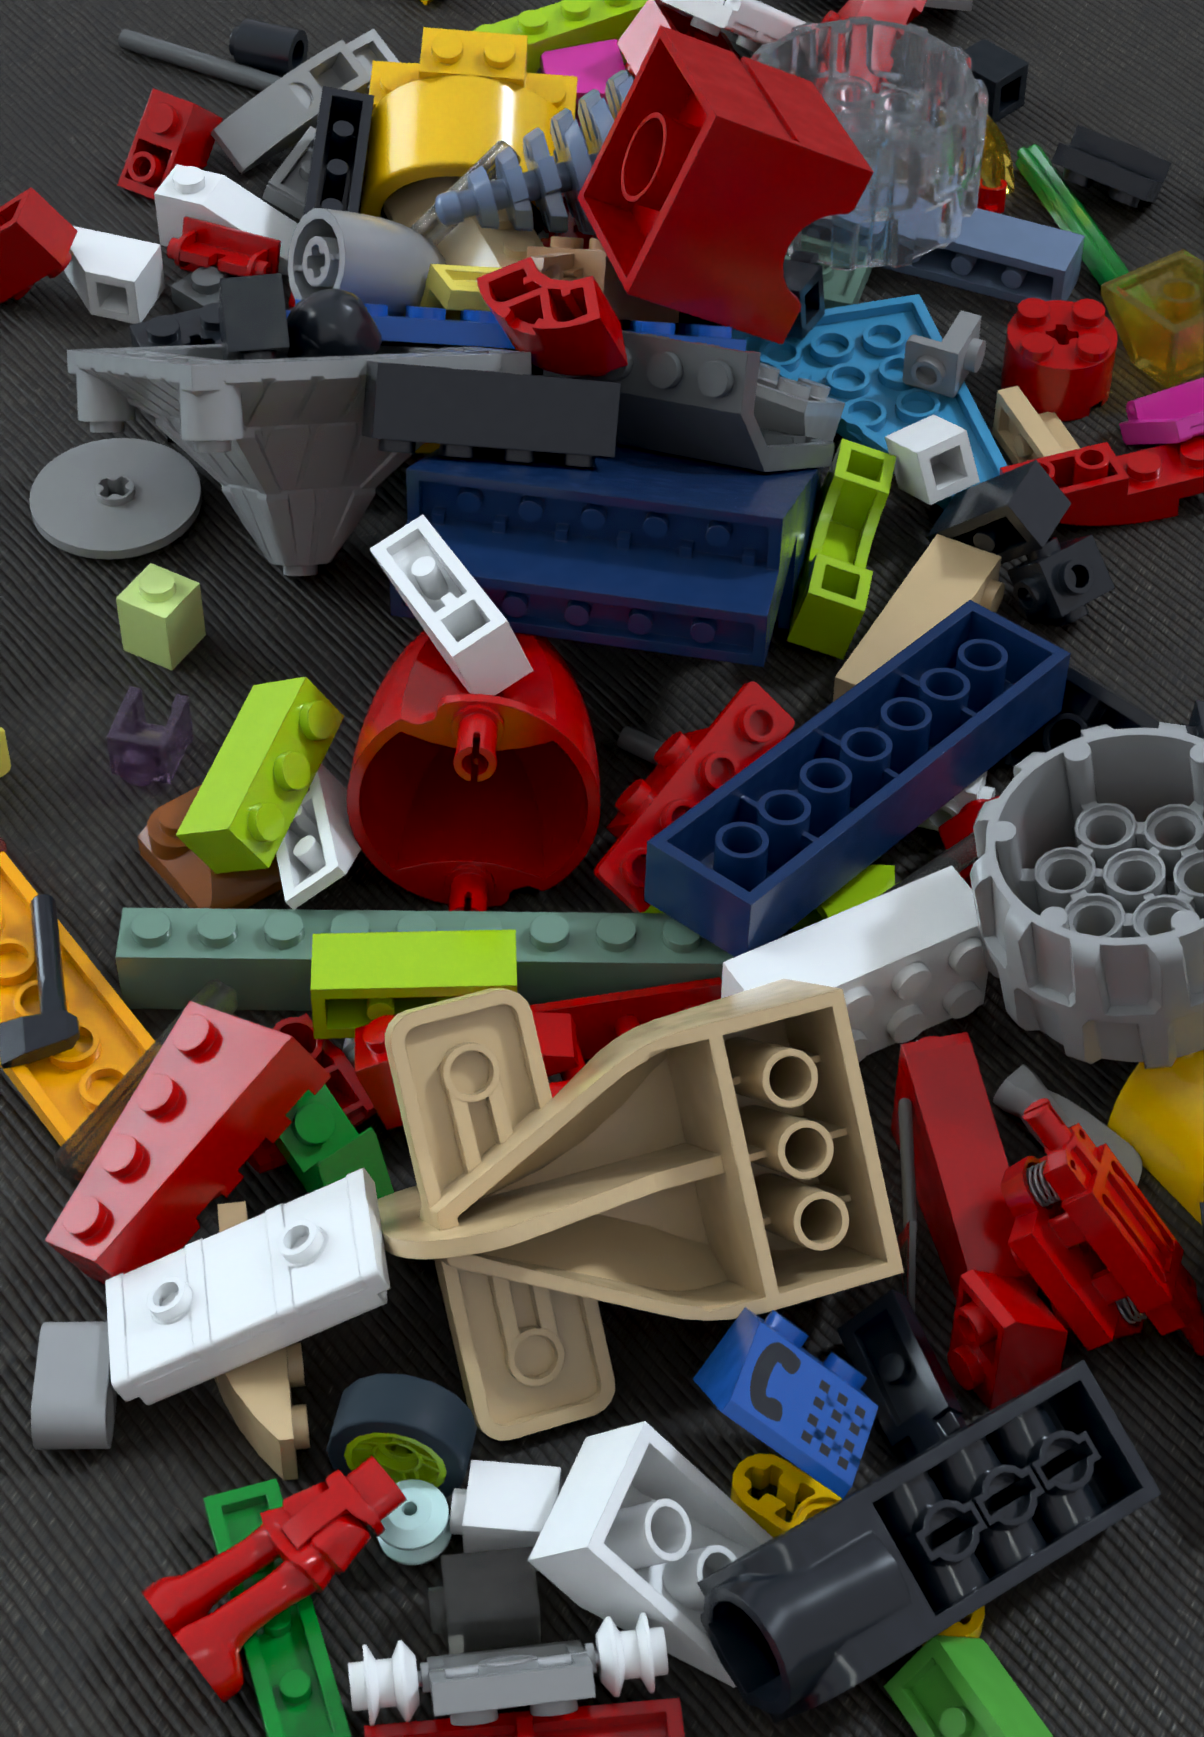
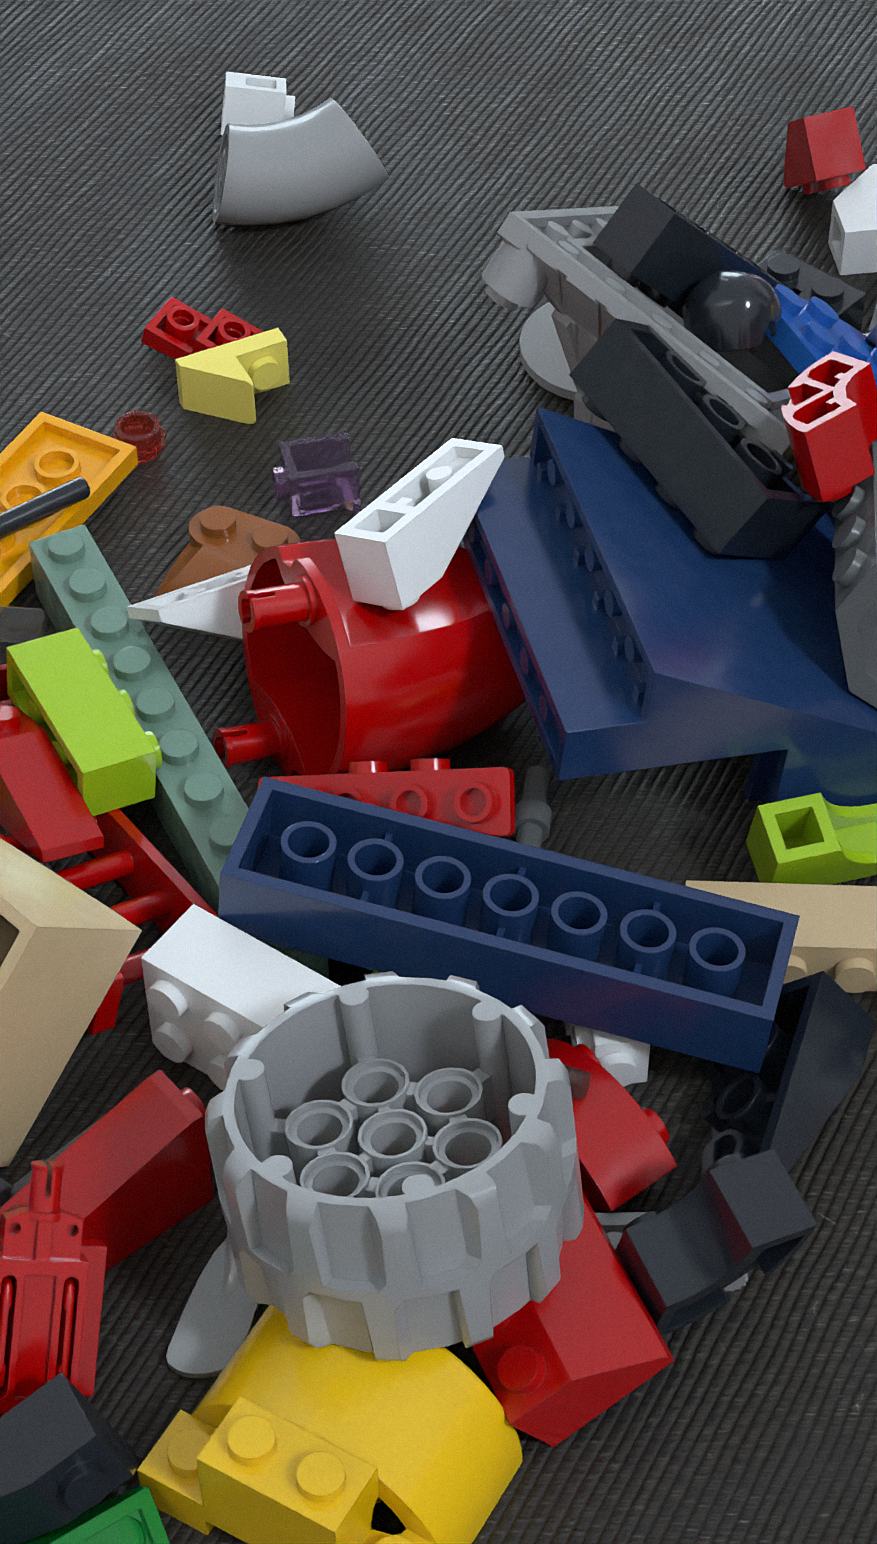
camera: 65 degrees right, 0 degrees up
(161, 616) = (460, 410): yellowish green brick -> none
(260, 776) = (228, 537): lime brick -> none

